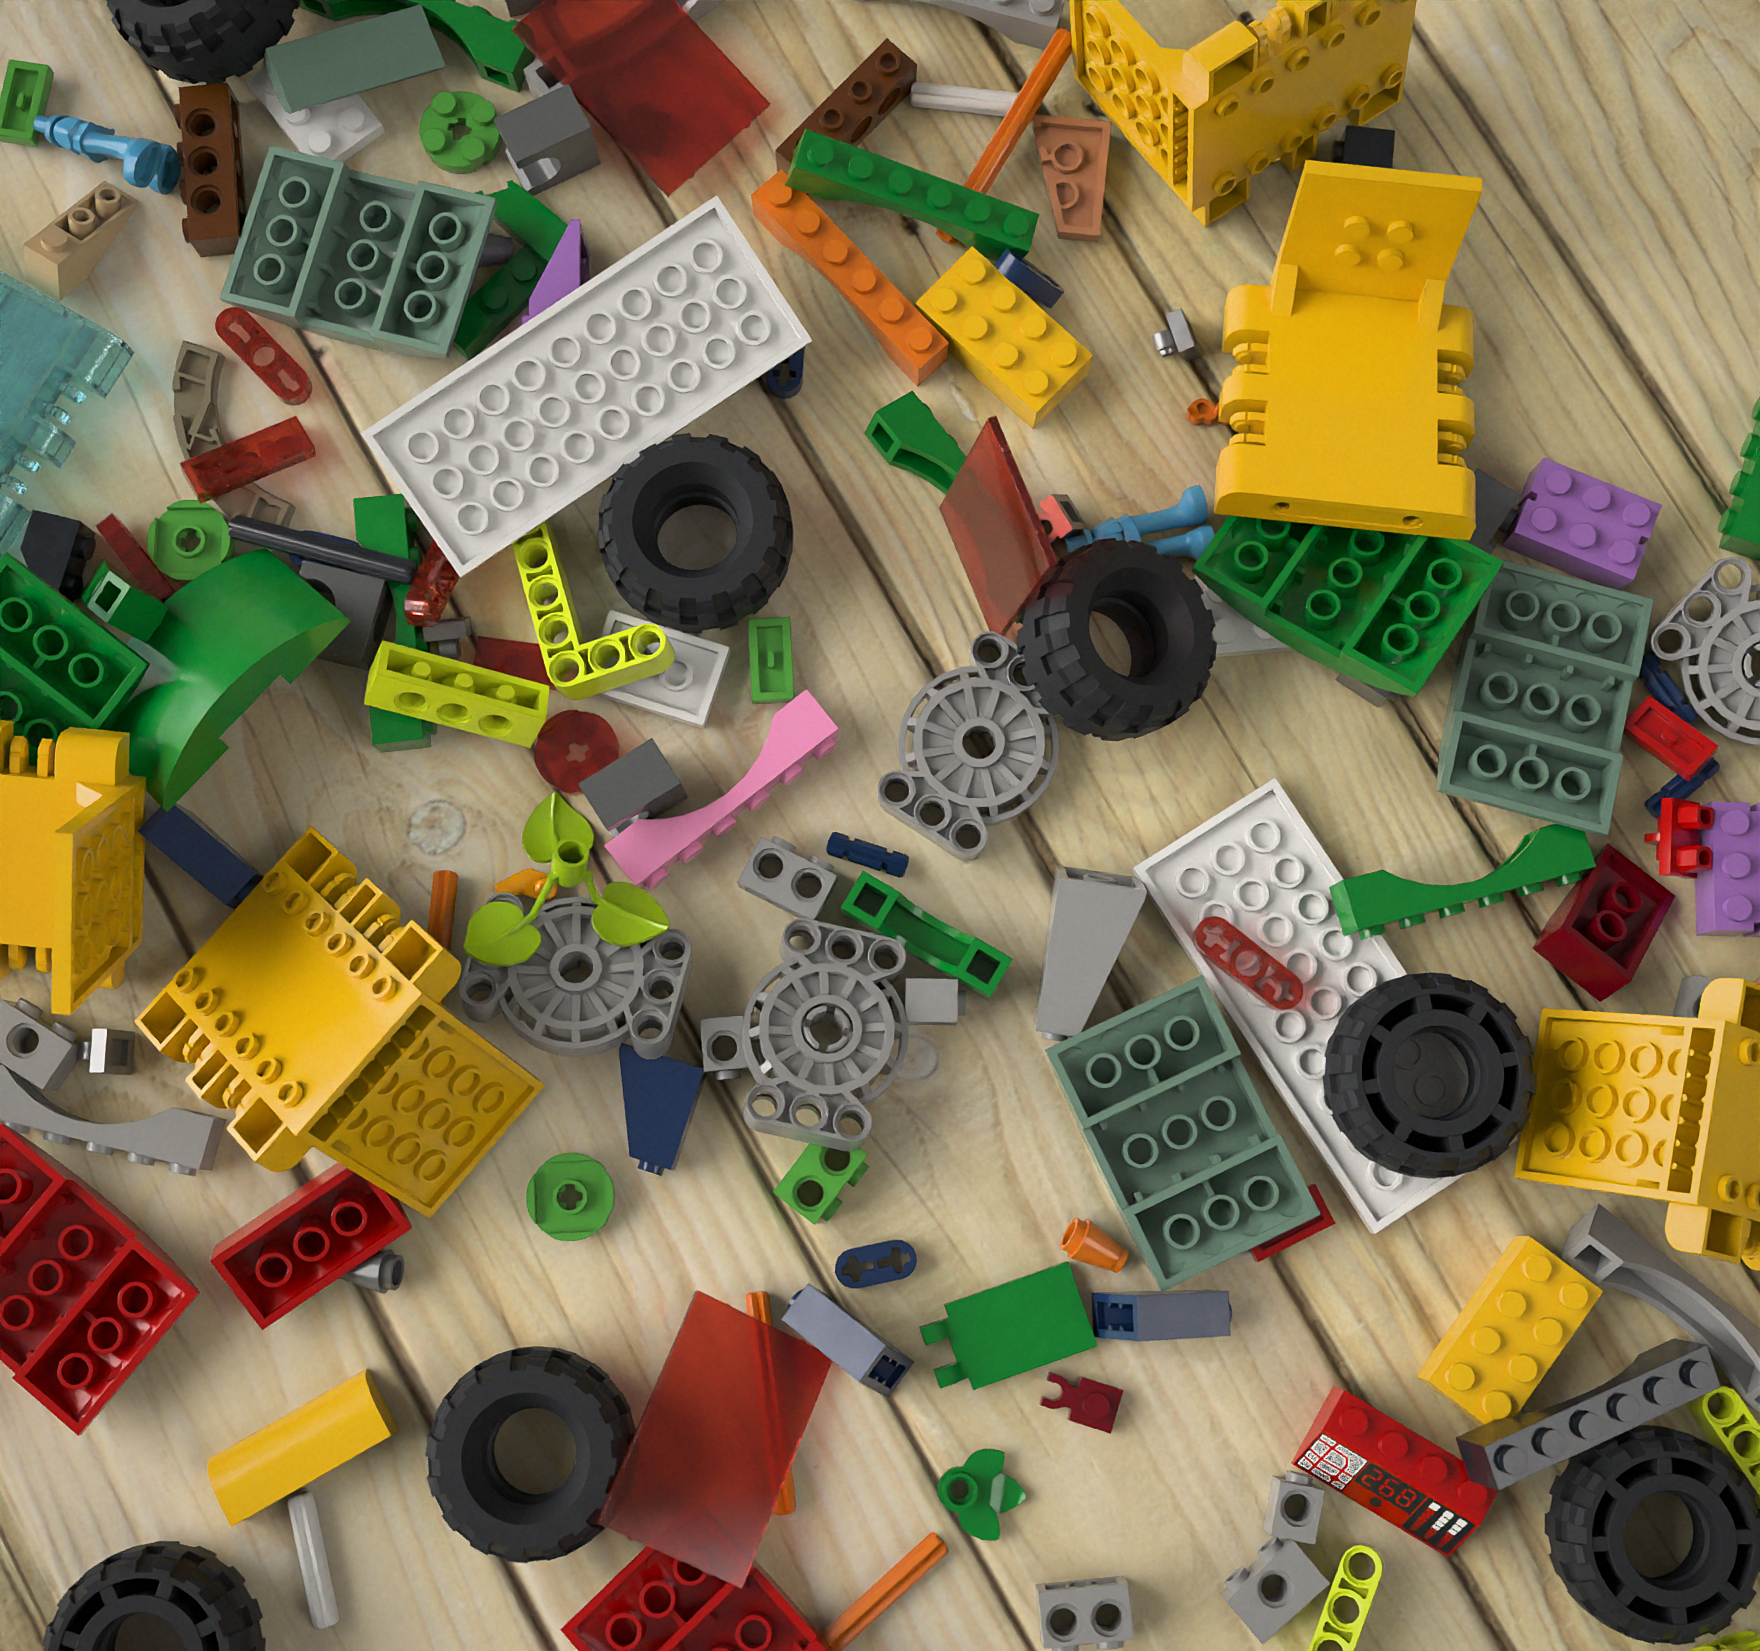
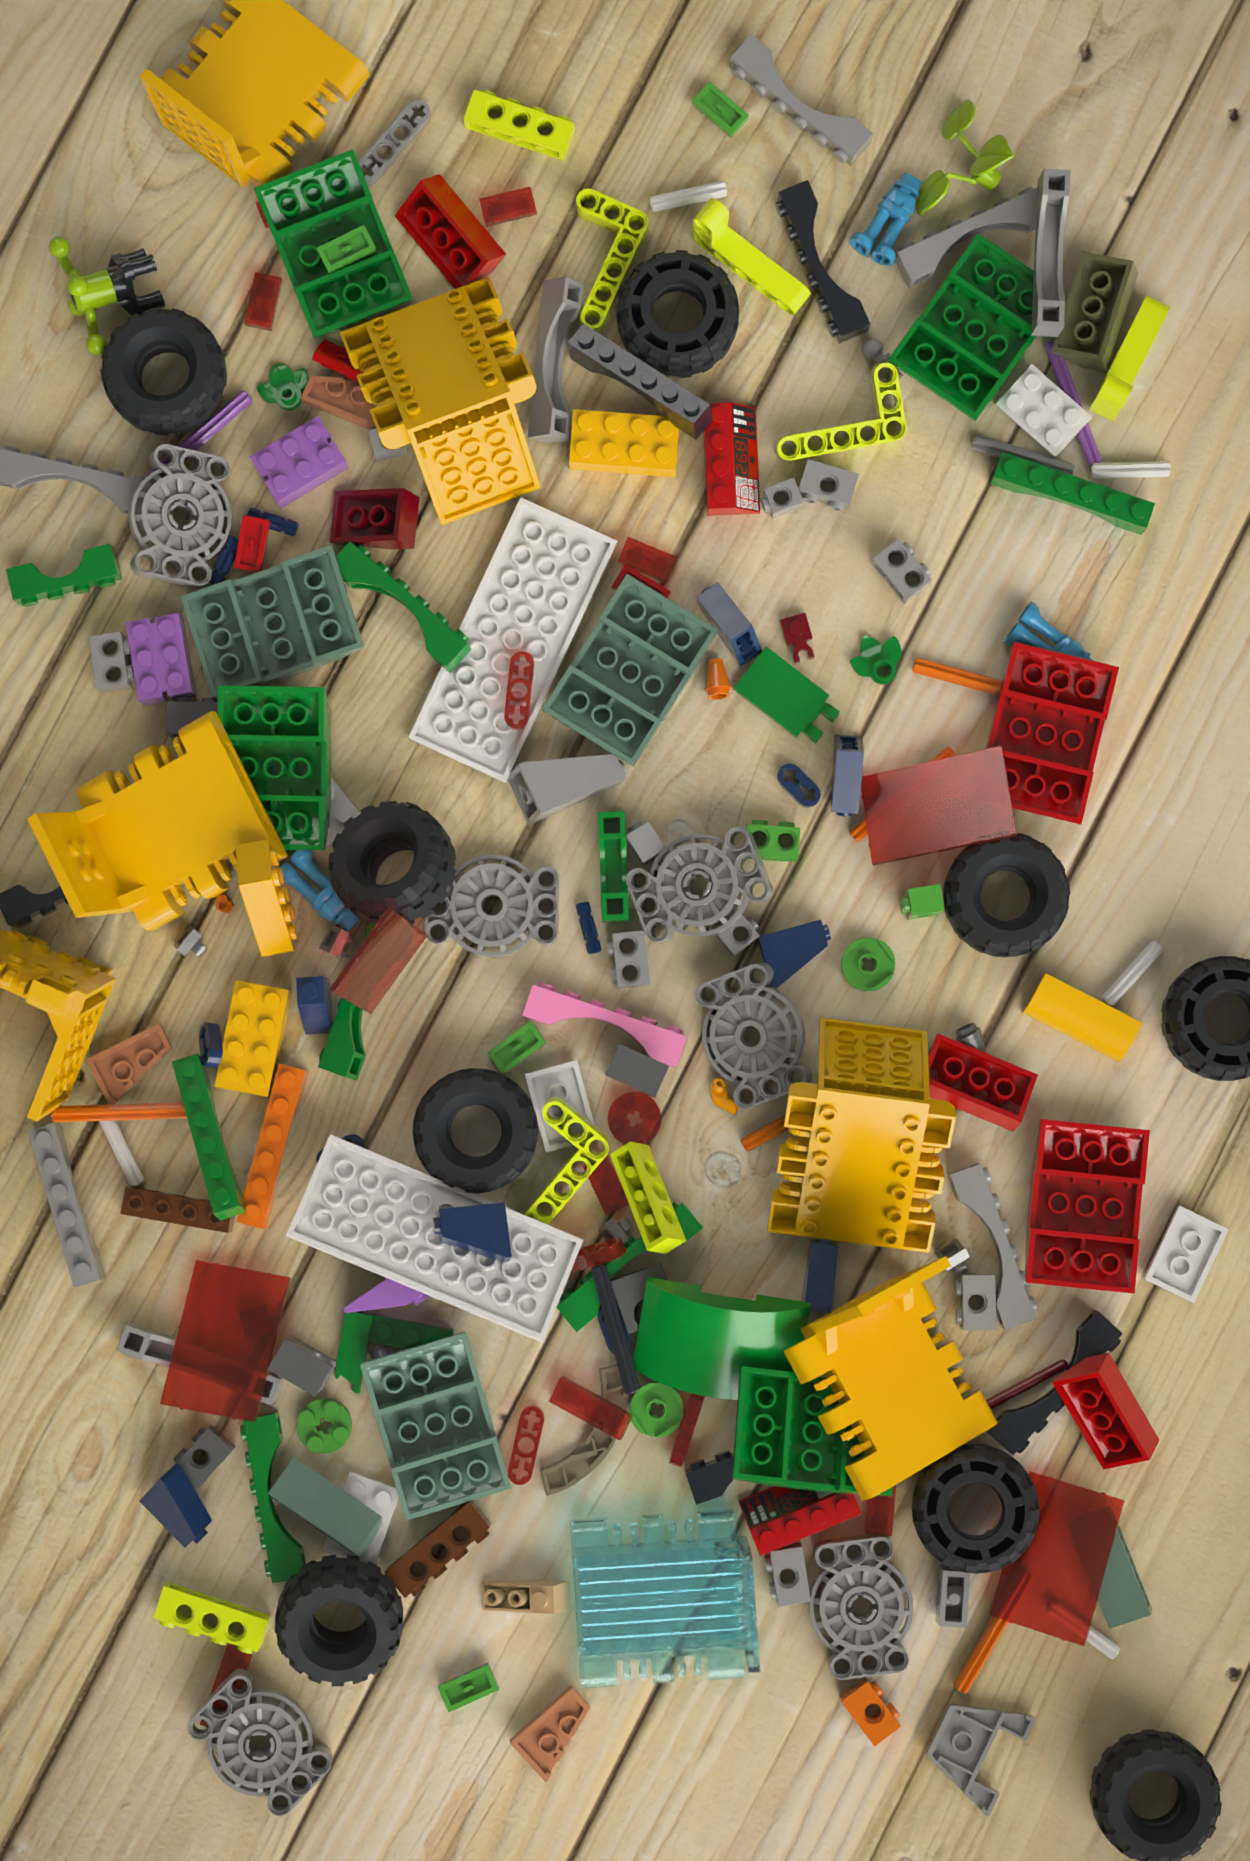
camera: 120 degrees left, 5 degrees up
(123, 602) = (714, 1418): green slope -> none
(144, 159) = (458, 1585): dark azure piece -> none
(560, 835) = (685, 1099): lime plant -> none
(561, 438) = (476, 1229): none -> dark blue slope
(601, 1327) = (922, 902): none -> bright green brick
(1019, 425) = (314, 1004): none -> dark blue slope
(1178, 445) = (266, 897): none -> yellow brick
(1322, 1259) = (647, 559): none -> clear red plate
(1364, 1090) = (529, 601): black tyre -> none
(1618, 450) = (104, 664): none -> light grey brick
(1679, 838) = (305, 506): red hips -> none

